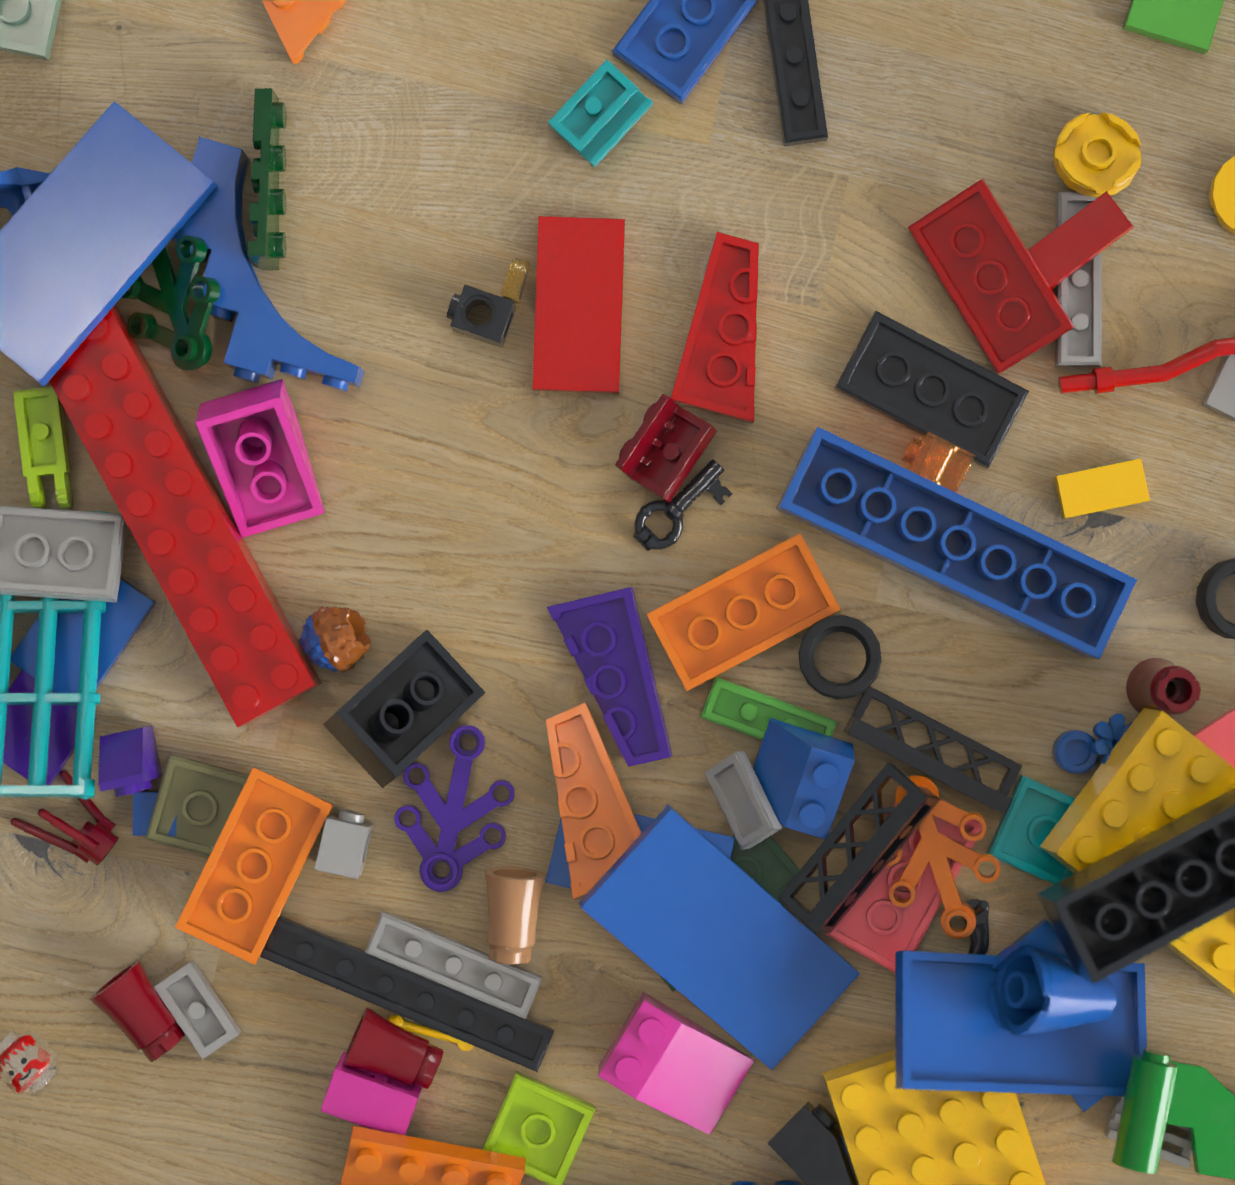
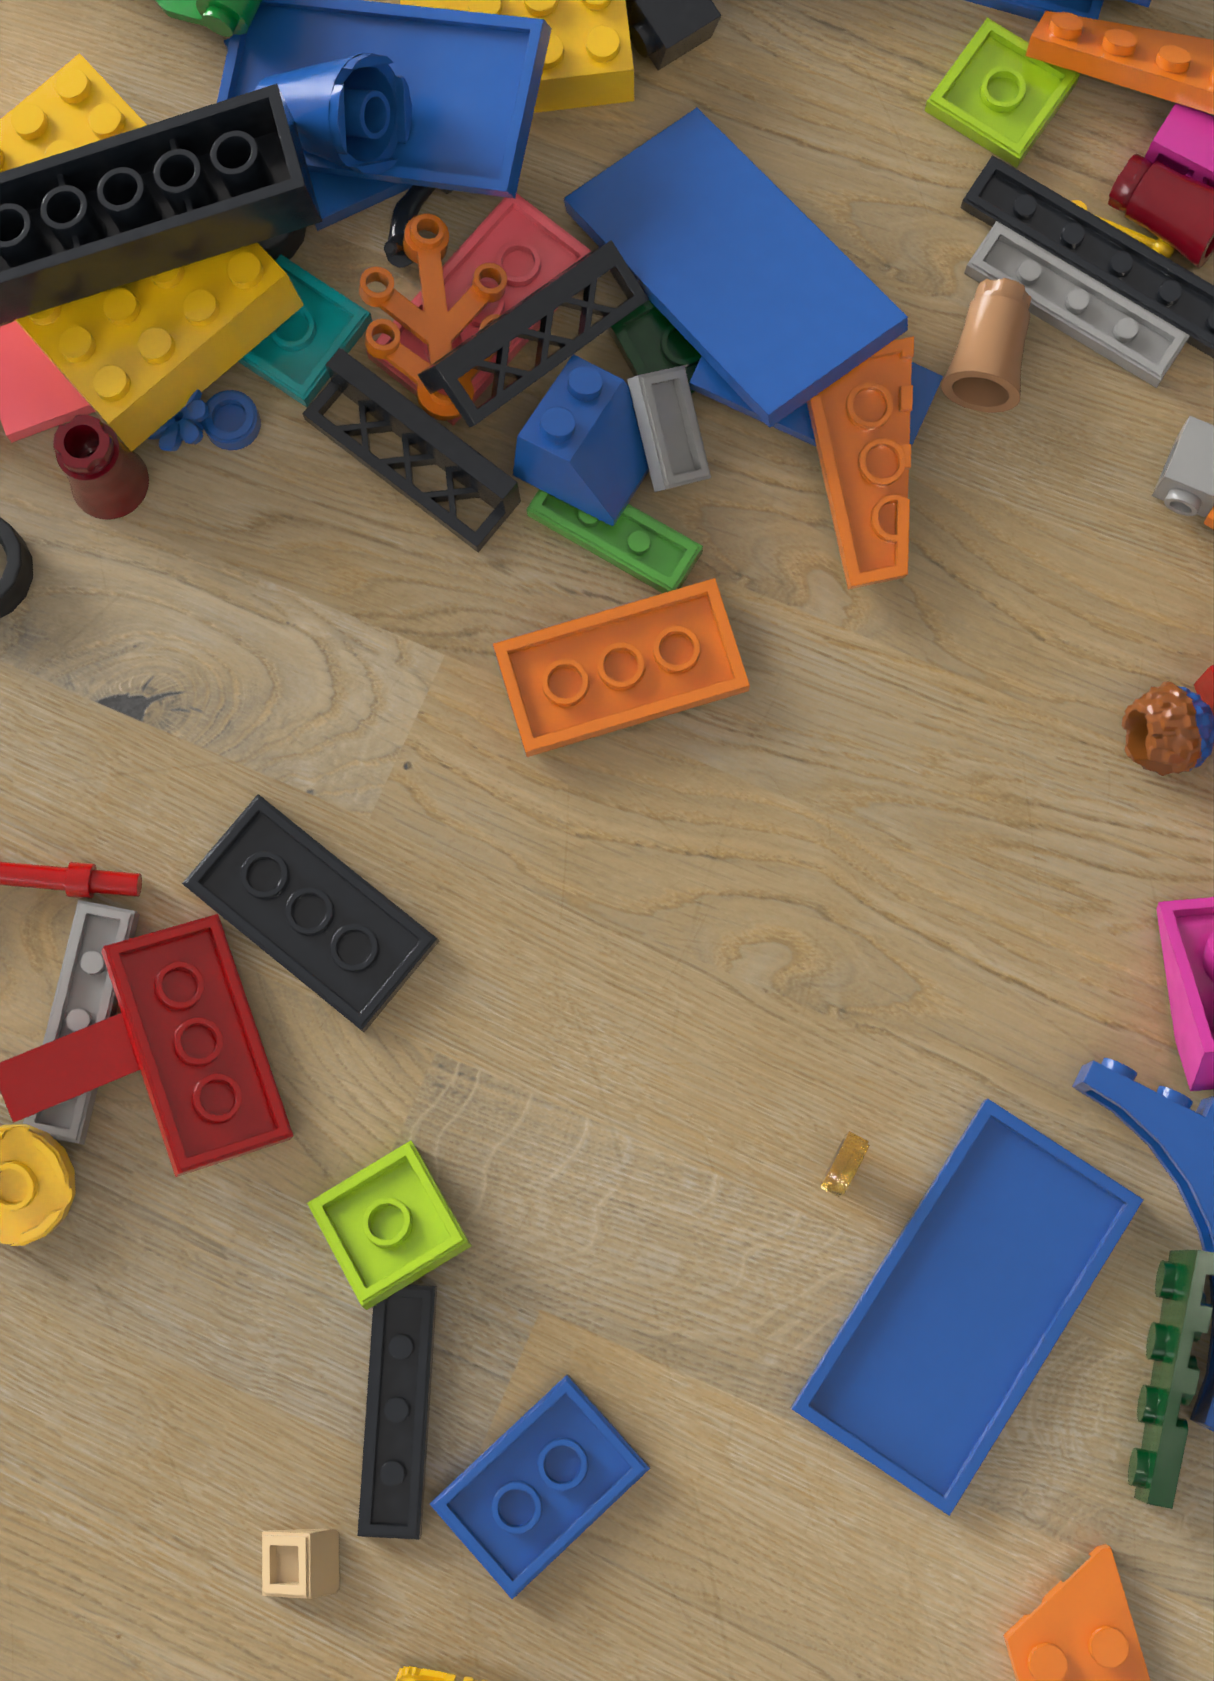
camera: 155 degrees left, 10 degrees down
(404, 709) = (1090, 624): black slope -> none
(413, 204) = (967, 1305): none -> blue tile
(452, 816) = (1048, 482): dark purple plant -> none
(492, 332) = (873, 1125): black brick -> none
(578, 304) = (762, 1119): red tile -> none
(600, 113) = (683, 1379): teal plate -> none
(614, 659) = (801, 636): dark purple wing -> none
(665, 448) = (682, 897): dark red bracket -> none
(674, 1064) = (822, 136): slope -> none
(706, 480) = (686, 818): black piece -> none
(721, 343) = (578, 1026): red wing -> none
(826, 178) = (389, 1225): none -> lime tile
(840, 624) = (506, 540): black tyre -> none
(938, 460) = (325, 808): clear orange brick -> none
(956, 544) = (327, 697): blue brick -> none
(1101, 488) = (117, 740): yellow tile -> none

